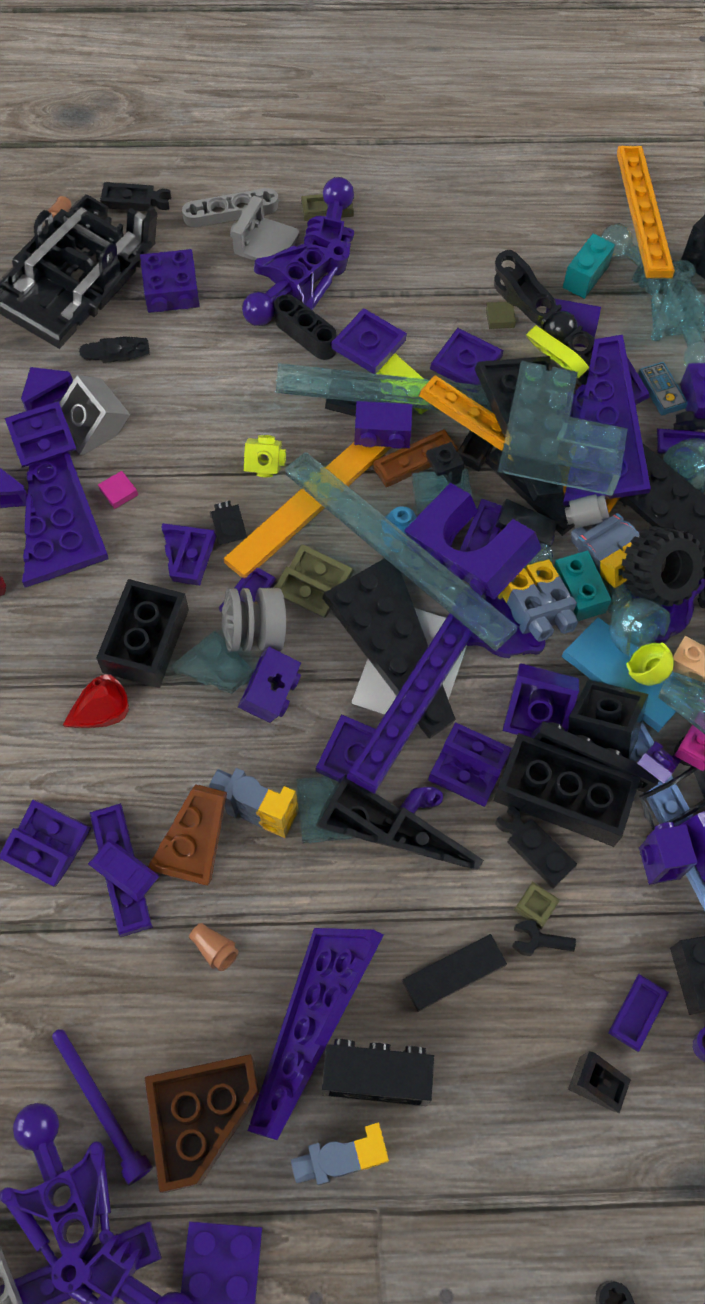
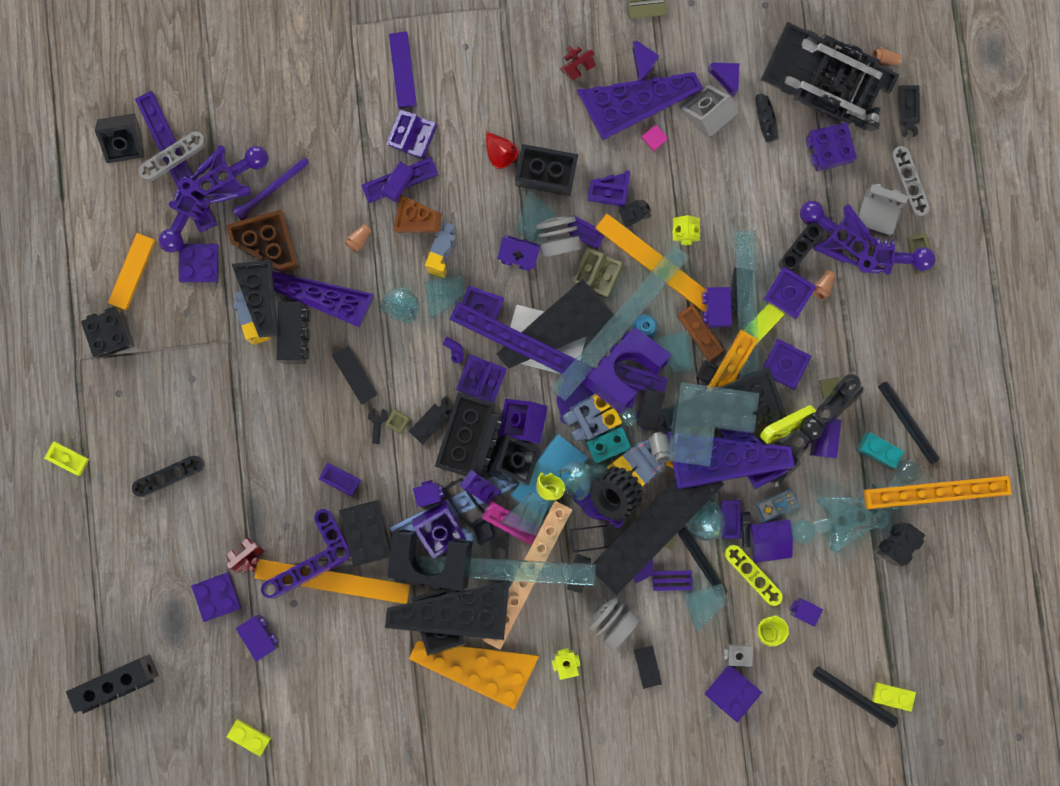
camera: 85 degrees right, 20 degrees up
(40, 434) = (686, 80): dark purple slope -> none
(302, 1127) = (258, 291): none -> black wing
(339, 878) = (400, 304): none -> clear light blue cylinder
(356, 303) = (824, 285): none -> nougat cone
(369, 817) = (434, 327): black wedge -> none
(446, 462) = (685, 349): black bracket -> none
(555, 234) = (908, 422): none -> black axle
(599, 1082) = (299, 457): black slope -> none

